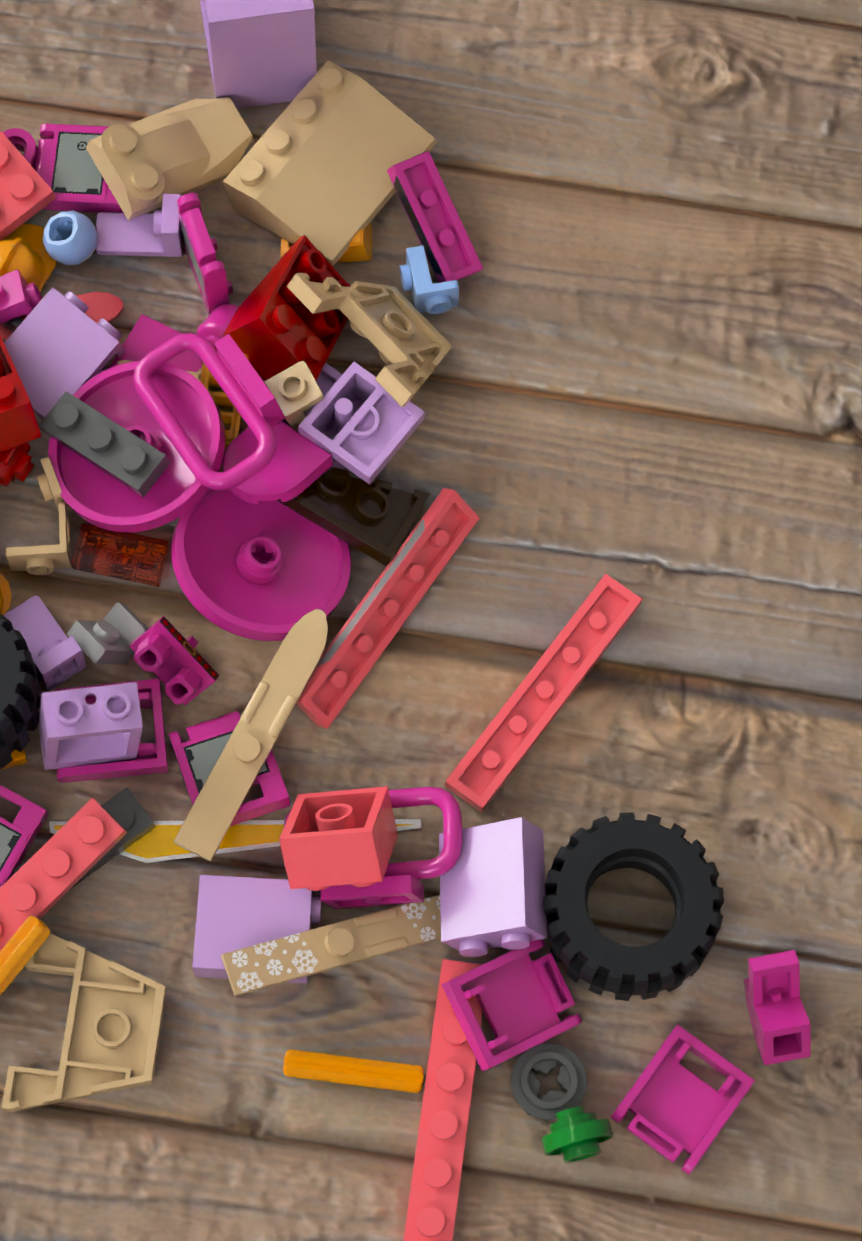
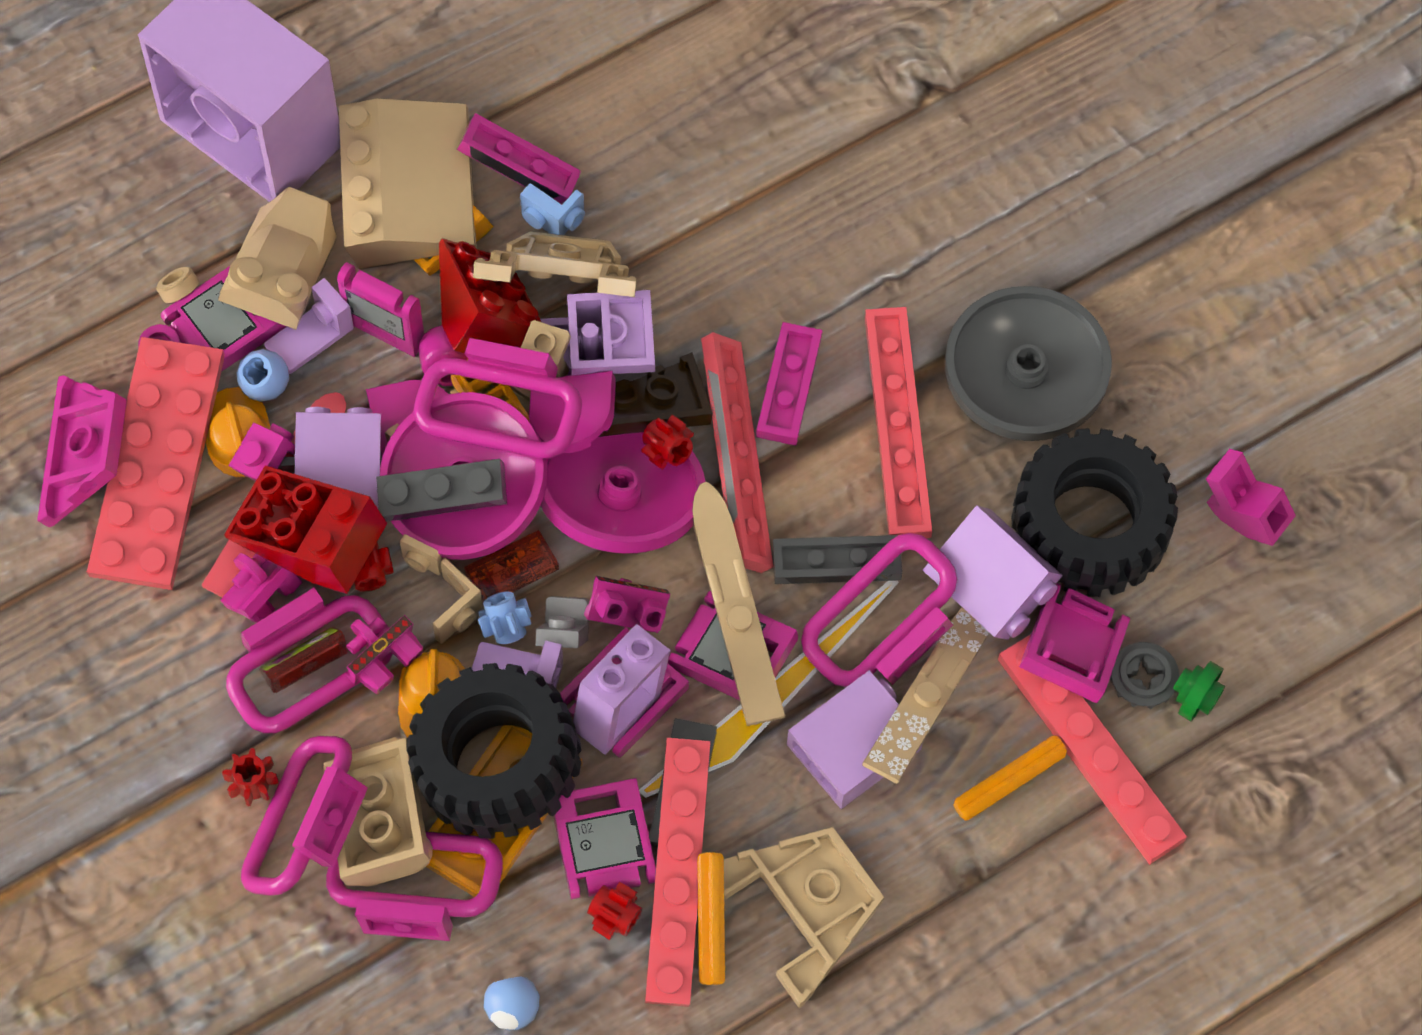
camera: 40 degrees left, 5 degrees down
(70, 590) = (504, 617): none -> light blue gear
(75, 111) = (177, 284): none -> tan tile
(327, 552) = (667, 442): none -> red gear
(339, 838) = (864, 623): coral brick -> none
(377, 759) = (829, 559): none -> dark grey plate
(484, 584) = (789, 383): none -> dark pink plate
(676, 1106) = (1240, 623): dark pink container -> none
(698, 732) = (1028, 363): none -> dark grey dish

